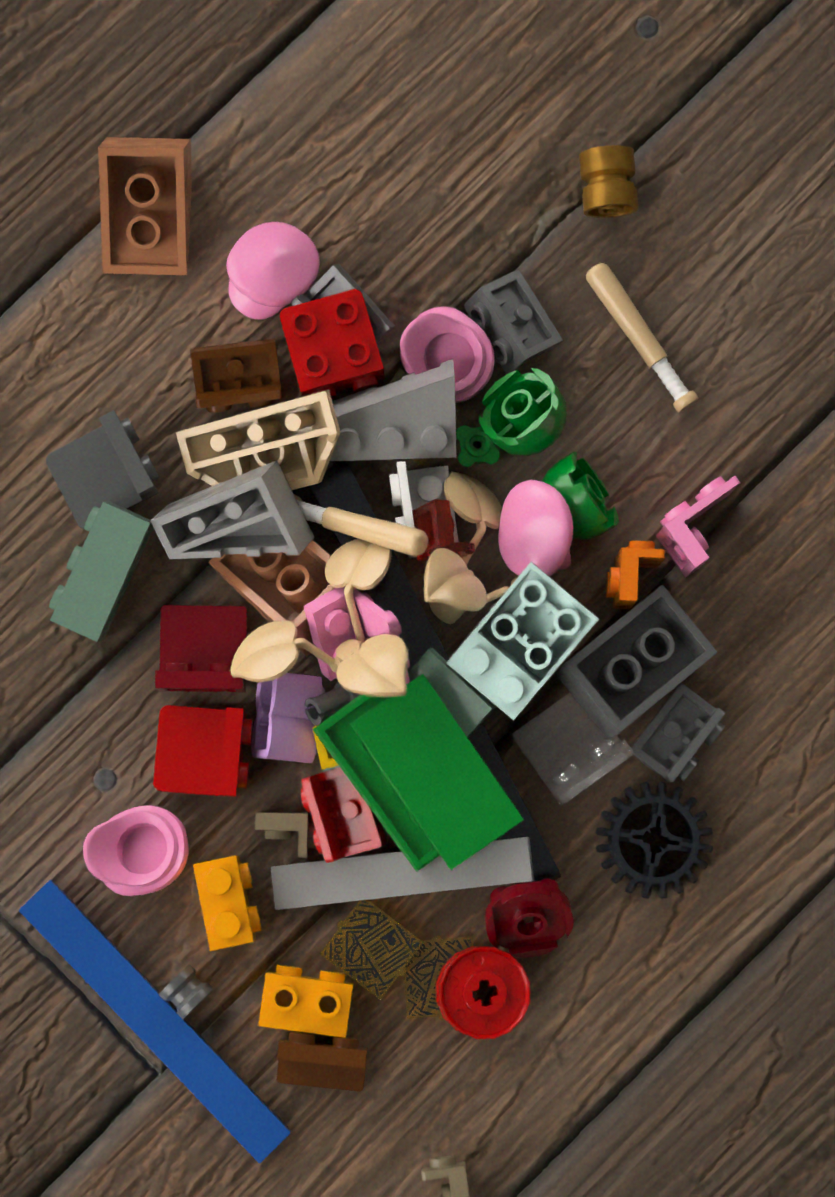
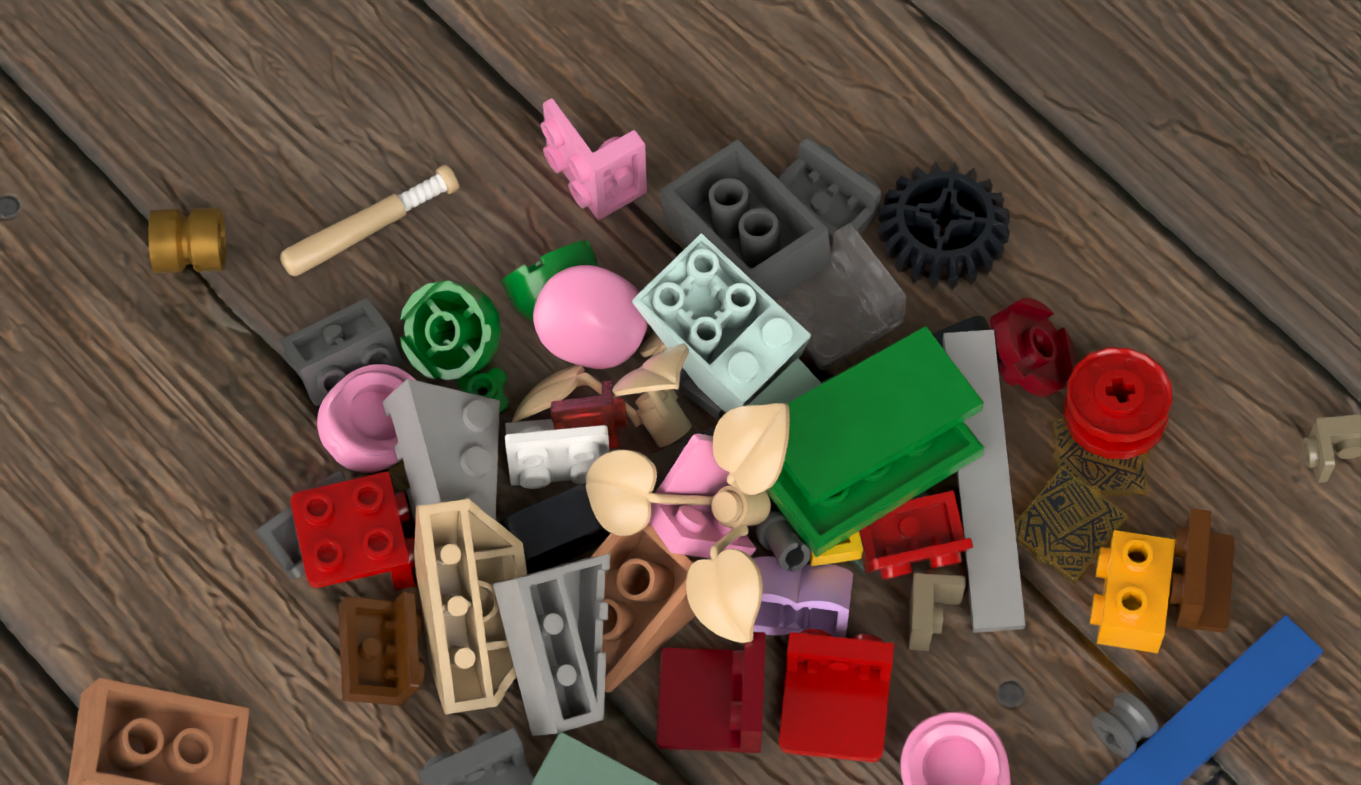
camera: 85 degrees left, 20 degrees down
(225, 902) = (1018, 674): light orange brick -> none
(270, 269) = (254, 610): bright pink piece -> none
(370, 529) = (582, 479): tan piece -> none
(623, 577) = (644, 228): orange bracket -> none

